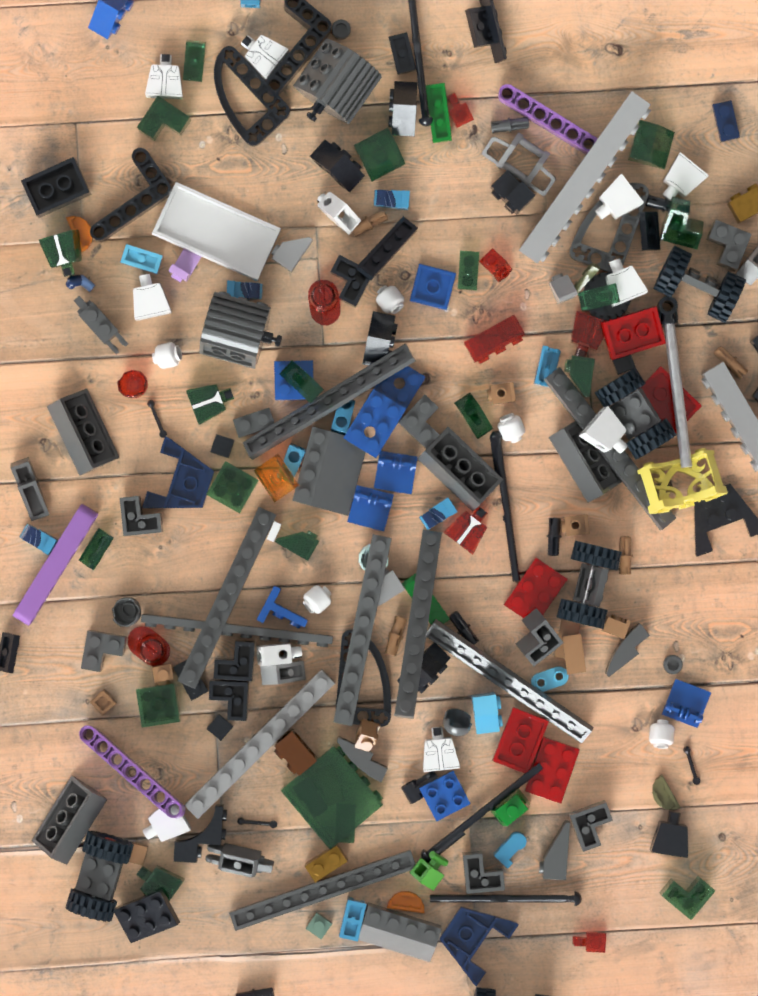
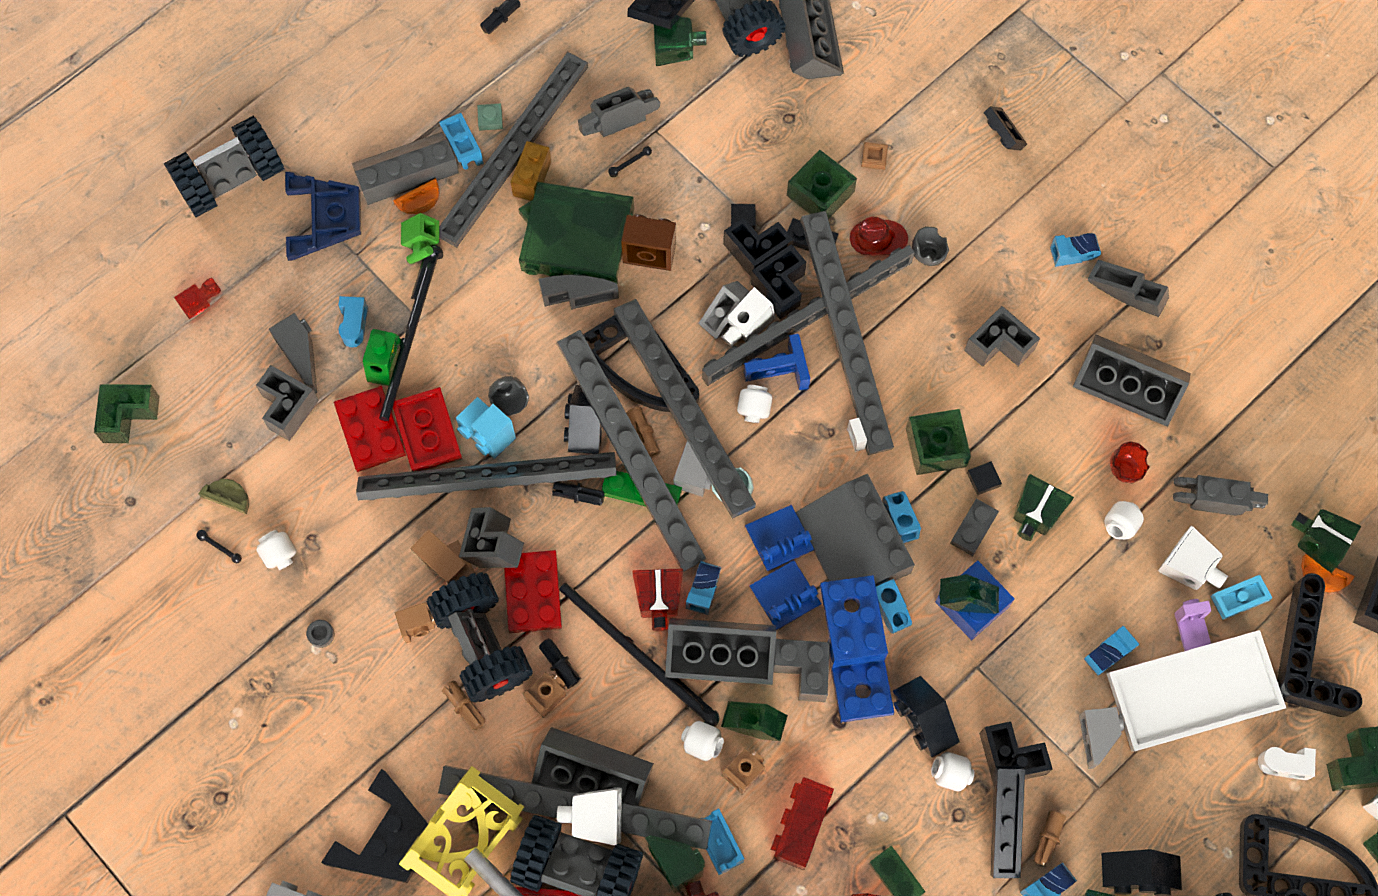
camera: 145 degrees right, 20 degrees down
(55, 564) = (1038, 239): medium lavender beam -> none
(79, 280) = (1278, 525): arm -> none
(96, 549) = (1013, 282): clear green plate -> none
(99, 644) = (926, 196): dark grey brick -> none
(122, 768) = (782, 113): medium lavender beam -> none
(138, 854) = (720, 52): medium nougat tile -> none
(162, 674) = (844, 218): medium nougat brick -> none
(163, 433) = (1053, 443): black hinge -> none
(165, 826) = (716, 97): white torso -> none
(188, 484) = (985, 413): dark blue wing -> none
(189, 849) = (673, 89): black arch -> none
(205, 153) = (1290, 765): none -> white leg
(236, 330) = (1086, 595): dark grey piece -> none
(259, 744) = (690, 230): light grey brick -> none
(276, 478) = (903, 485): clear orange tile -> none
(300, 543) = (820, 442): clear green slope -> none
(324, 302) = (1013, 704): clear red piece -> none
(329, 401) = (919, 609): dark grey plate -> none
(333, 206) = (1106, 817): white torso -> none
(366, 735) = (590, 312): medium nougat brick -> none
(412, 789) = (496, 304): black piece -> none
(432, 287) = (918, 827): blue tile -> none
(439, 752) = (501, 354): white torso -> none
(444, 796) = (461, 316): blue hinge -> none
(480, 880) = (360, 267): dark grey brick -> none
(549, 678) = (446, 514): medium azure plate -> none
(576, 898) = (245, 325): black bar -> none
(626, 649) = (381, 607): dark grey slope -> none
(671, 837) = (186, 455): black torso -> none
(686, 703) = (273, 604): blue hinge -> none

